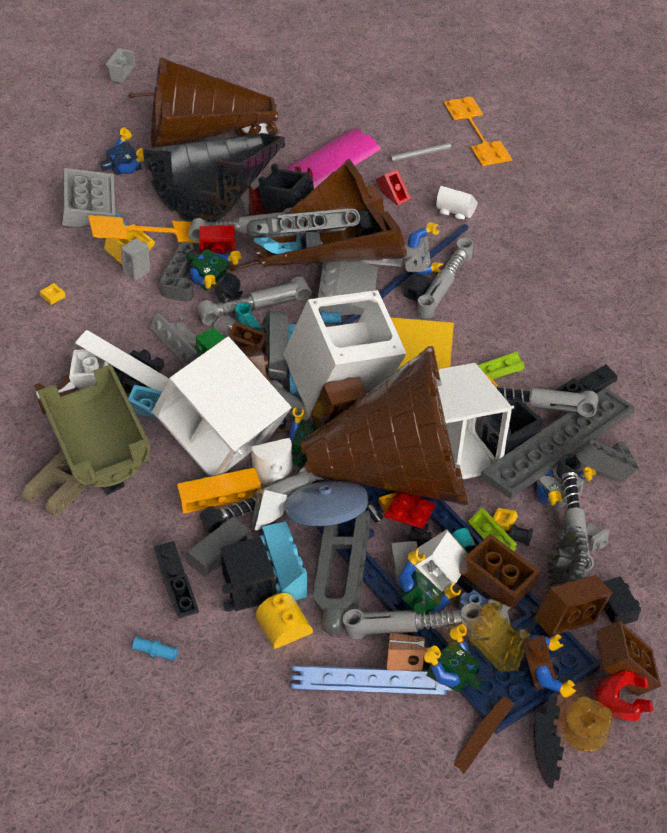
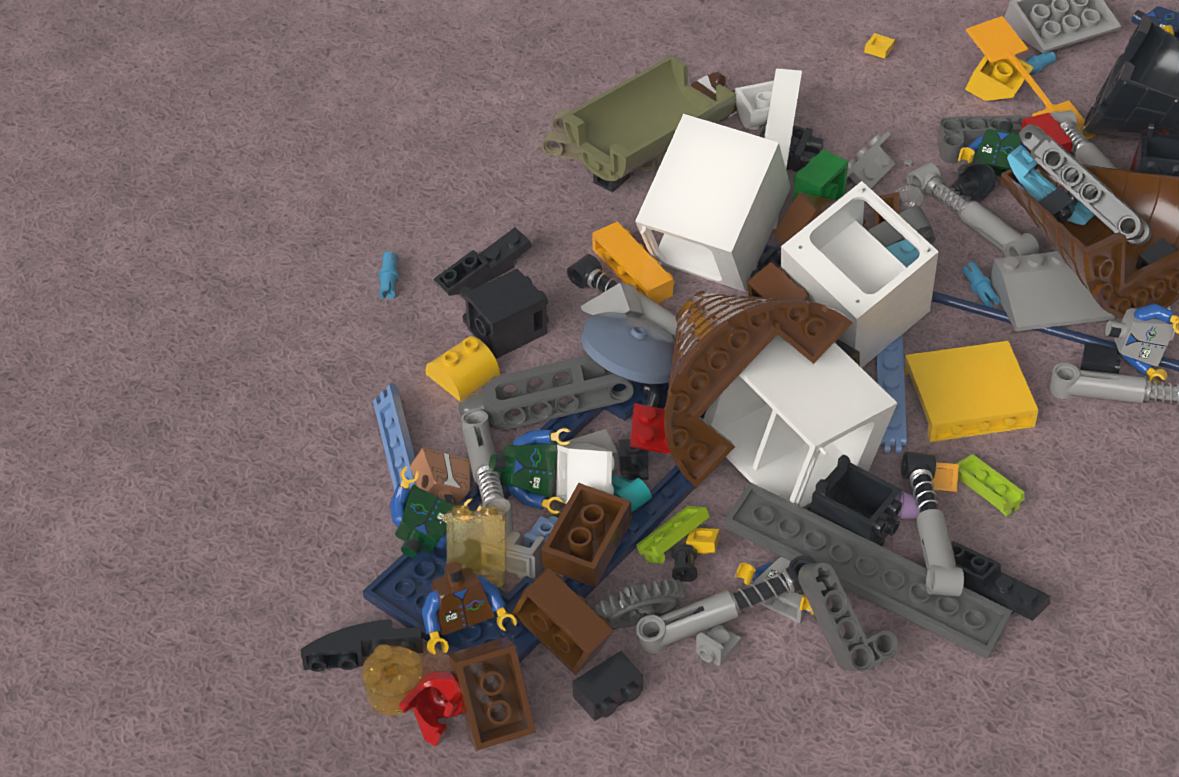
camera: 75 degrees right, 0 degrees up
(135, 259) = (969, 86): light grey brick -> none
(206, 555) = (562, 289): dark grey brick -> none
(244, 316) = (938, 209): teal piece -> none
(272, 461) = (684, 283): white brick -> none
(284, 560) = (543, 345): medium azure wedge -> none
(483, 734) = (355, 580): reddish brown sticker -> none

